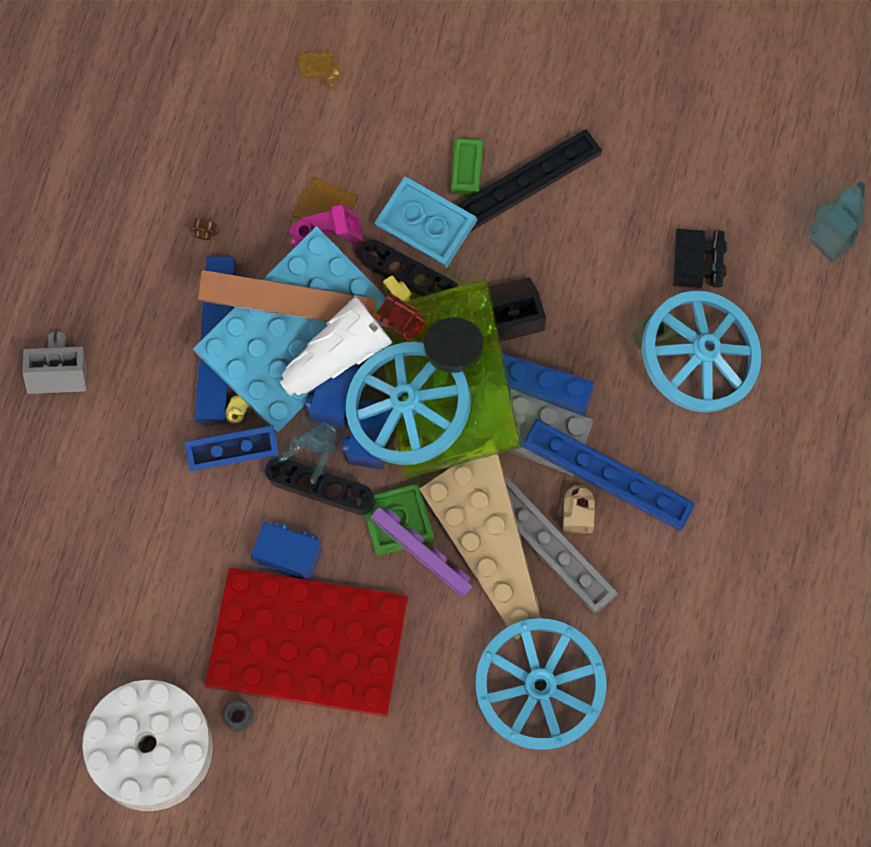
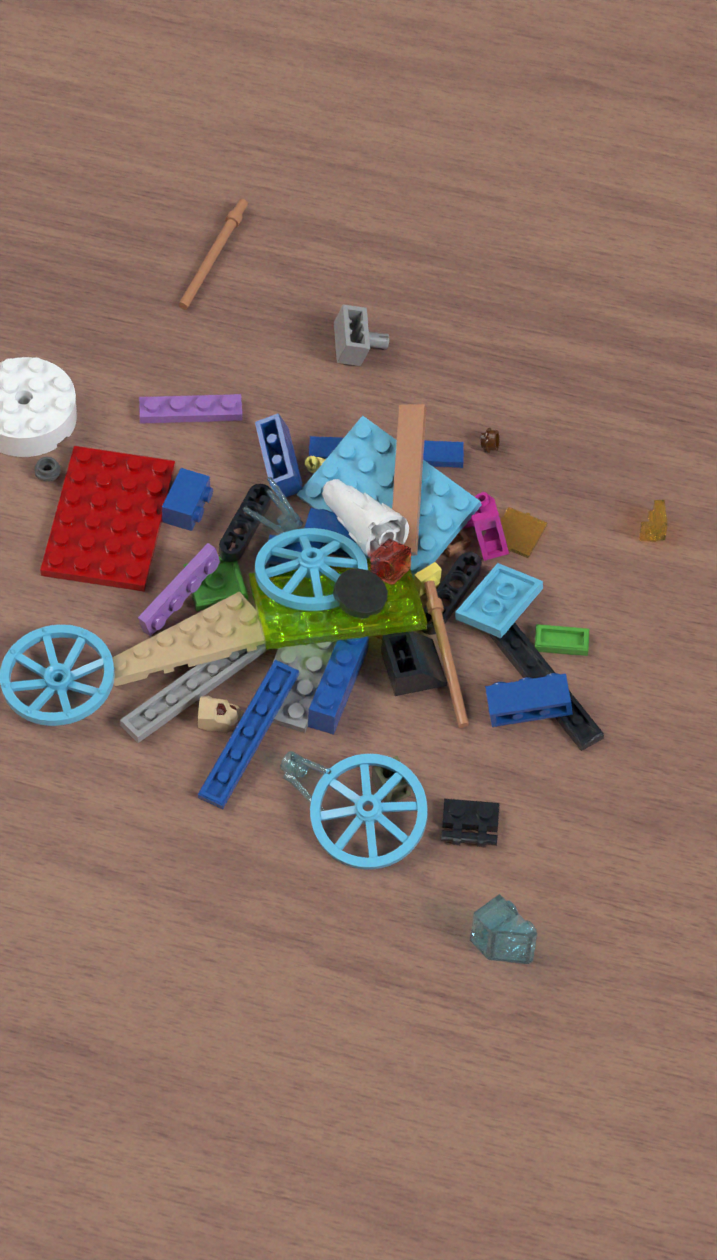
camera: 85 degrees right, 15 degrees down
(148, 555) = (190, 408): none -> medium lavender plate
(441, 283) = (435, 608): none -> nougat bar
(554, 194) = (528, 699): none -> blue brick
(642, 427) = (297, 766): none -> clear light blue plant

